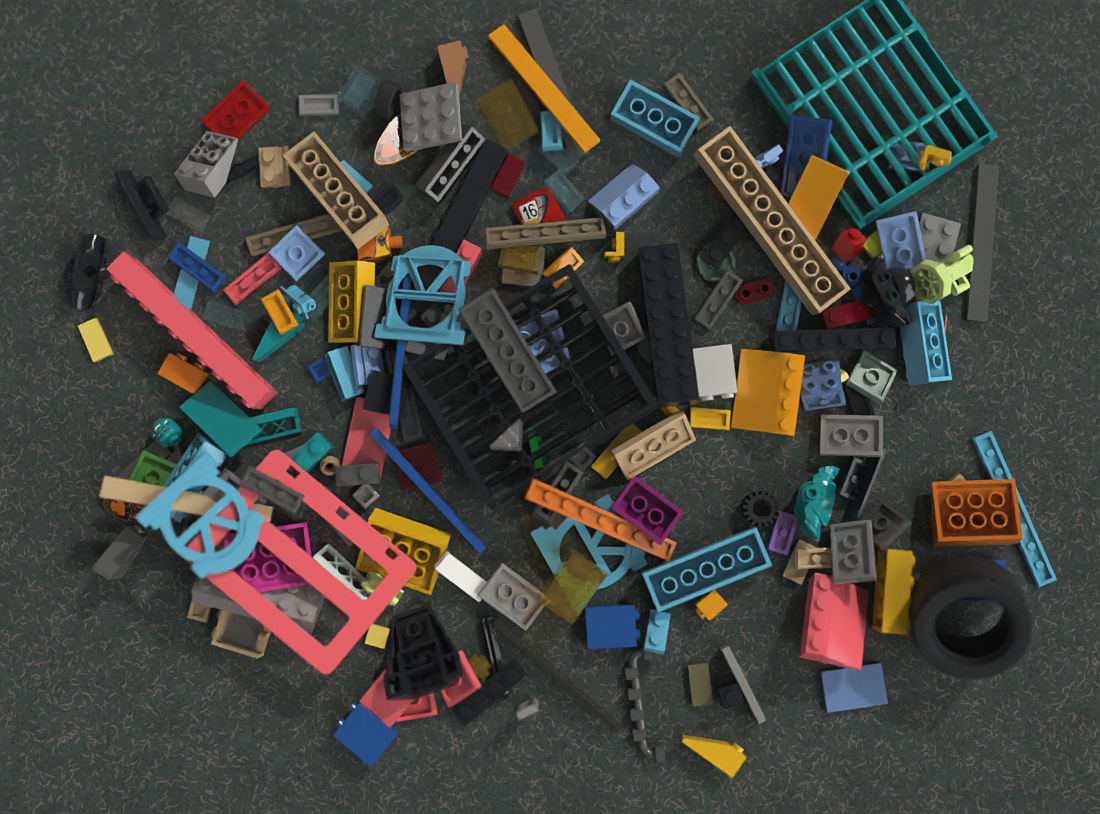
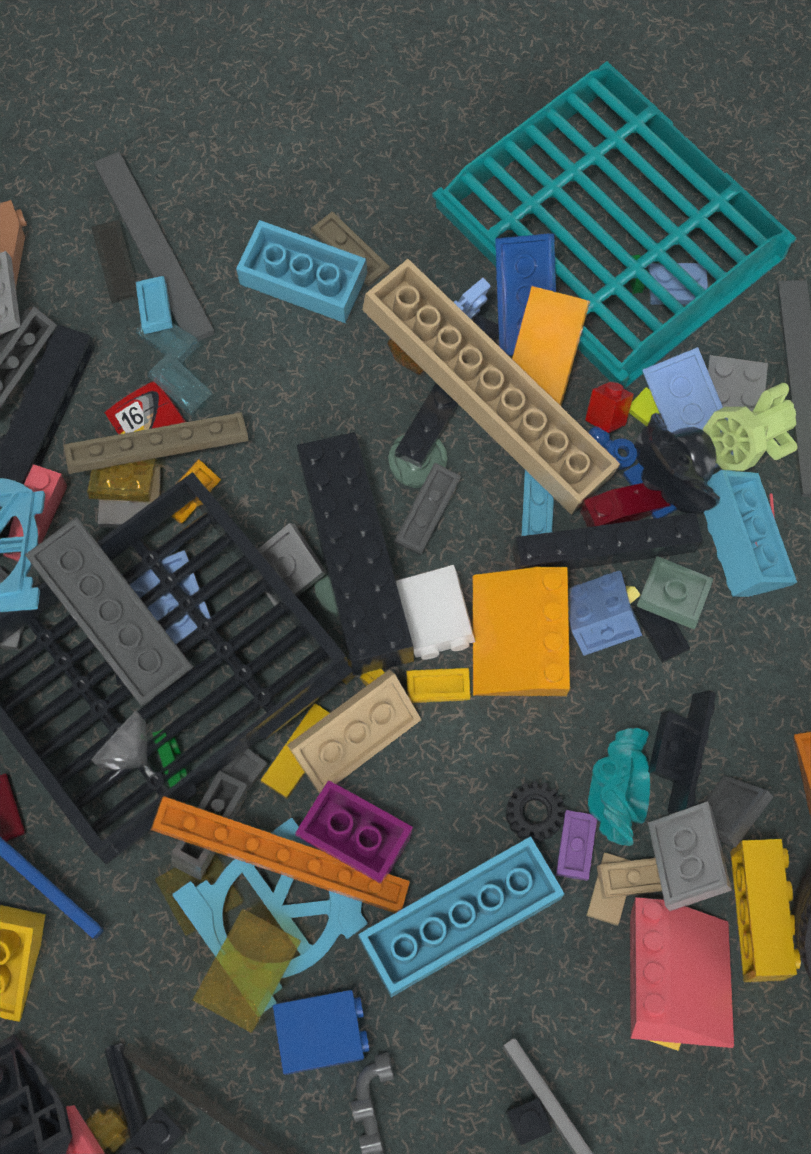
camera: 10 degrees left, 15 degrees down
(460, 575) = (67, 980): white tile -> none
(508, 115) = (89, 292): clear yellow tile -> none
(508, 175) = (97, 374): dark red tile -> none
(512, 596) = (153, 1005): light grey tile -> none
(544, 88) = (139, 251): light orange tile -> none
(618, 245) = (269, 458): yellow bracket -> none
(624, 195) = (272, 382): light blue slope -> none
(657, 631) = (395, 1031): medium azure plate -> none
(700, 684) = (478, 1113): olive tile -> none
(710, 605) = (476, 975): light orange brick -> none
(754, 291) = (481, 492): dark red plate -> none
(851, 435) = (658, 680): light grey plate -> none
(853, 688) = (730, 1084): medium blue tile -> none
(936, 155) = (709, 264): yellow bracket -> none

